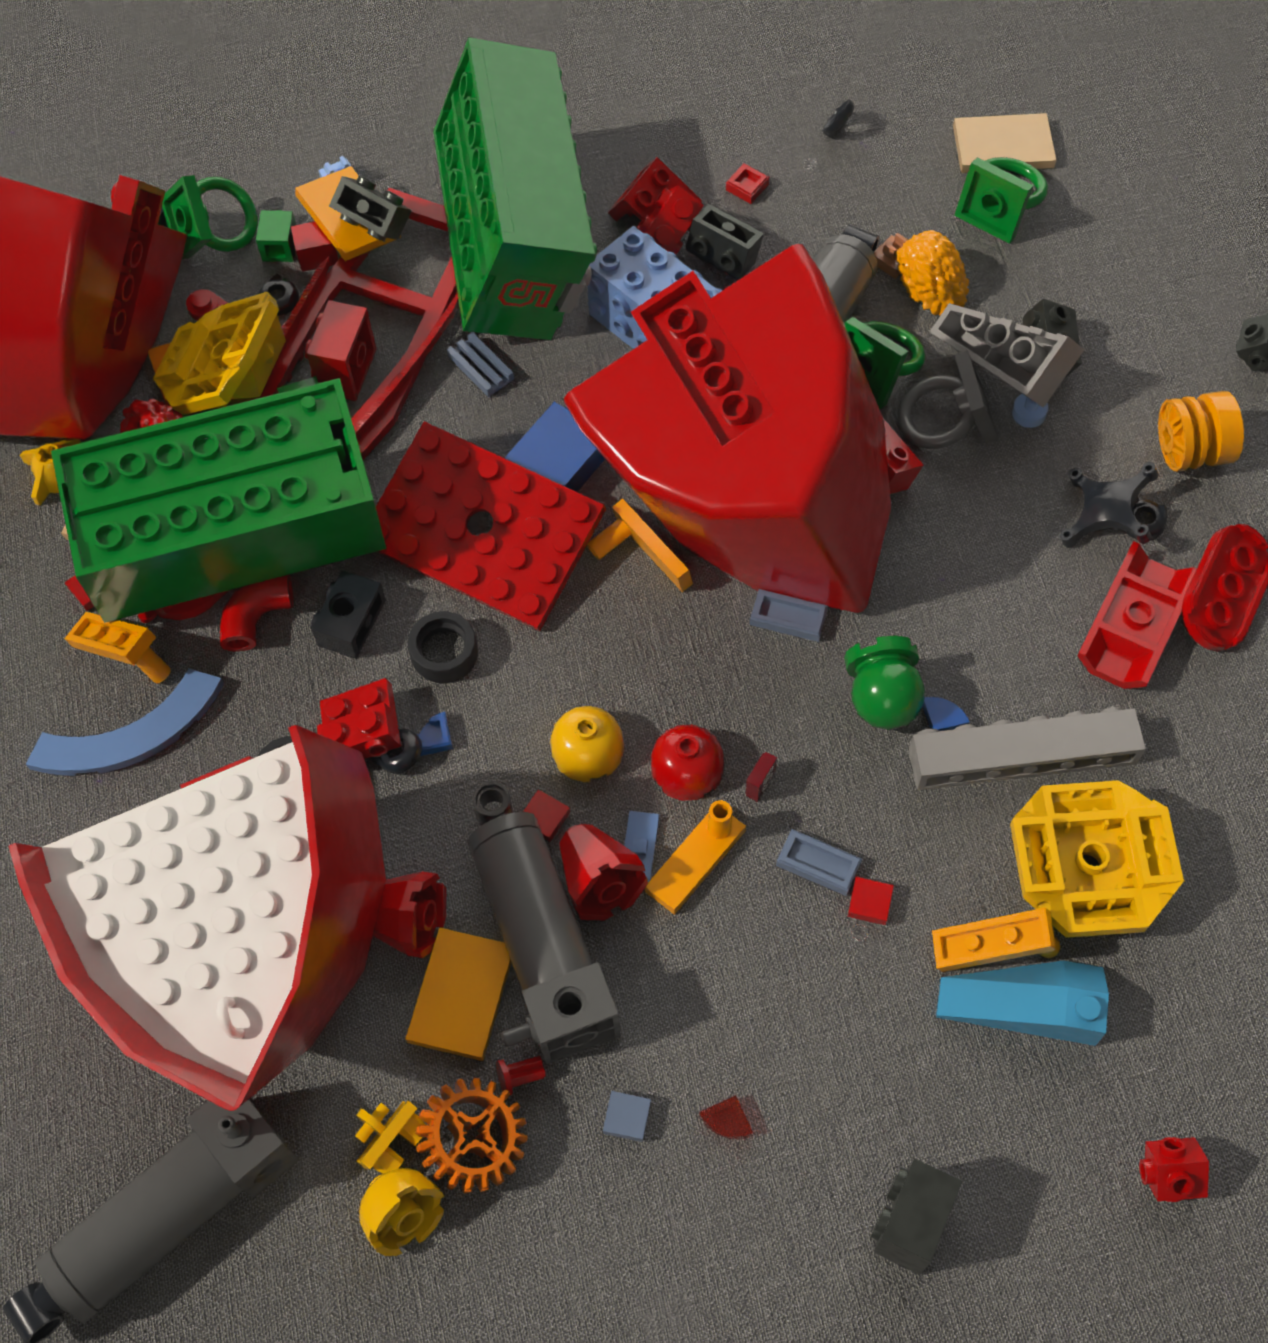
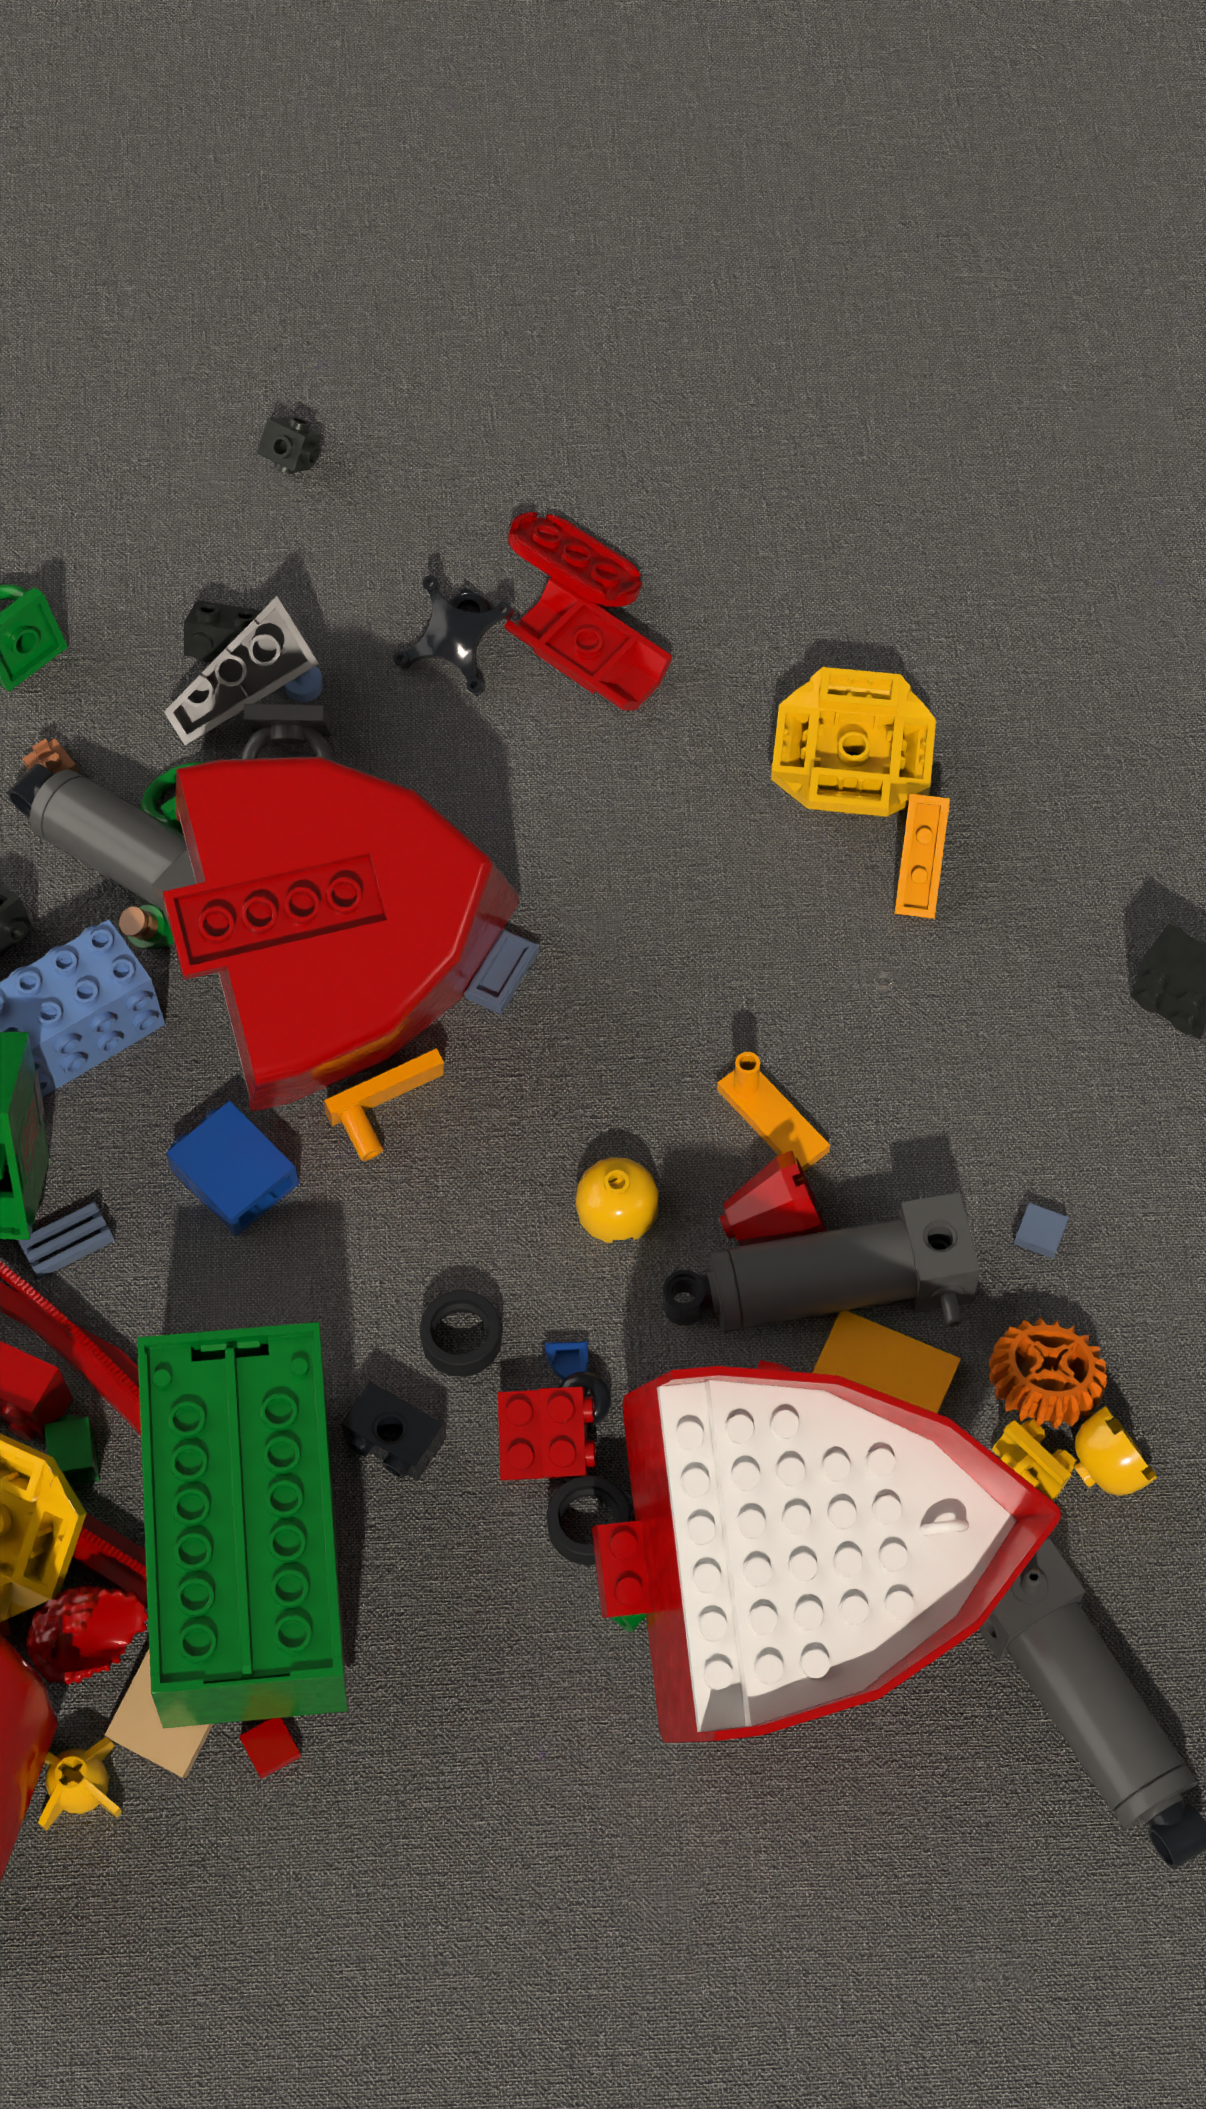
camera: 80 degrees left, 0 degrees up
(119, 642) = (370, 1708): light orange piece -> none
(133, 742) = (504, 1706): medium blue tile -> none
(247, 607) = (358, 1551): red cylinder -> none
(519, 1073) = (983, 1325): red piece -> none
(533, 537) = (330, 1199): red plate -> none
(548, 812) = (690, 1254): red tile -> none
(642, 836) = (733, 1165): medium blue piece -> none
(687, 762) = (661, 1103): red cylinder -> none
(727, 1119) = (1056, 1139): clear red tile -> none
(760, 776) = (696, 1032): dark red tile -> none
(819, 862) = (799, 1001): sand blue tile -> none
(870, 900) = (851, 962): red tile -> none
(886, 684) = (625, 887): green tile -> none
(933, 271) = (96, 726): light orange piece -> none
(943, 714) = (657, 850): blue tile -> none
(1026, 748) = (716, 784): light grey brick -> none
(1039, 999) = (979, 839): dark azure wedge -> none
(1175, 1169) = (1164, 764): red brick -> none
(1200, 430) = (390, 527): light orange wheel -> none

